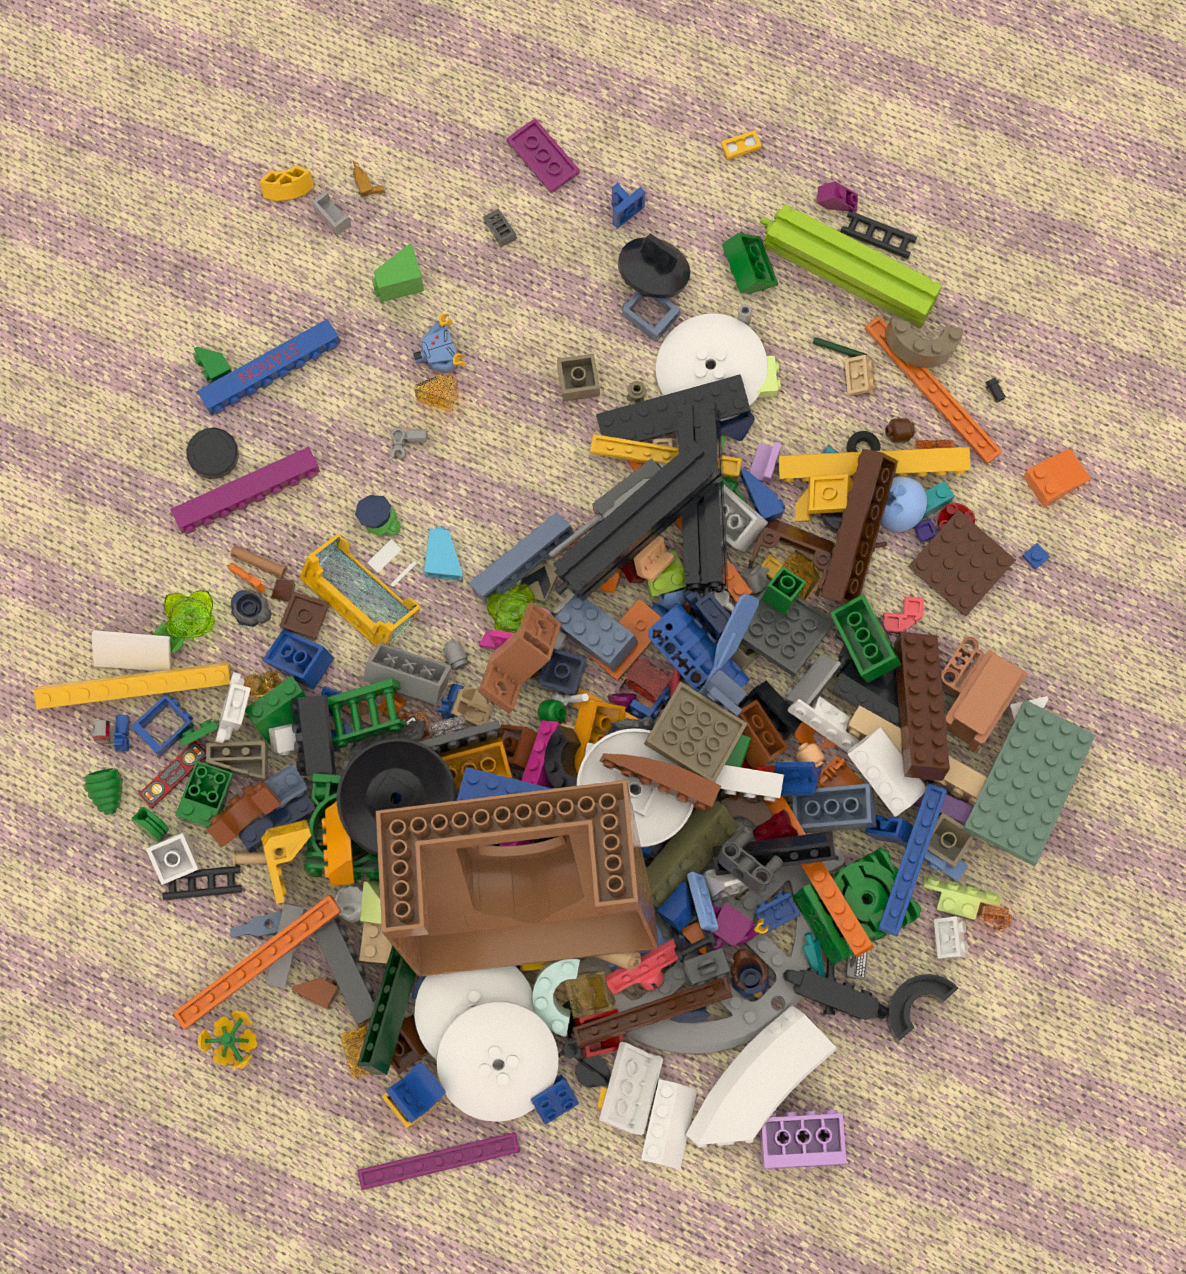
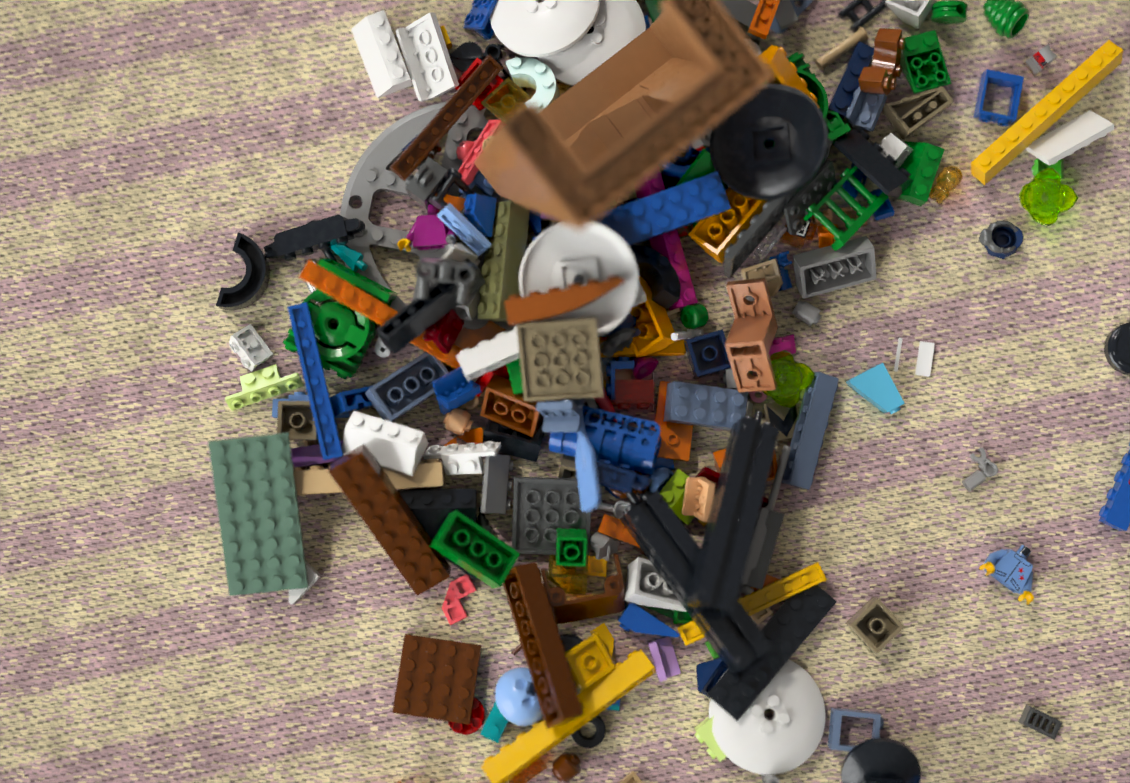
camera: 140 degrees right, 10 degrees up
(121, 741) = (1020, 64): blue bar -> none
(173, 774) = (961, 65): tile -> none
(191, 735) = (968, 103): green plate -> none
(233, 708) = (954, 141): white piece -> none
(245, 490) = (1080, 334): magenta brick -> none
(253, 581) = (1016, 263): orange piece -> none
(258, 561) = (1023, 283): medium nougat pin -> none
(283, 590) = (985, 273): reddish brown slope -> none
(290, 840) = (833, 52): yellow bracket -> none
(299, 658) = (931, 223): blue slope -> none
(304, 615) = (953, 263): reddish brown plate -> none
(357, 593) = (924, 311): windscreen -> none
(377, 516) = (955, 386): dark blue piece -> none
(398, 276) = (1095, 612): bright green slope -> none
(438, 392) = (983, 530): clear yellow slope -> none
(517, 744) = (704, 270): dark orange slope -> none
(636, 396) = (810, 644): dark tan brick -> none
(749, 974) = (391, 204): piece -> none
(760, 1080) = (328, 130): white slope -> none
(777, 912) = (401, 271): blue bracket -> none
(812, 1151) = (267, 106): lavender brick -> none
(837, 774) = (425, 418): orange hinge -> none
(925, 530) = (486, 689): dark purple tile -> none
(981, 692) = (346, 568): nougat piece -> none
(998, 914) = (223, 387): clear orange bracket -> none
(1036, 556) = (378, 729): blue plate -> none

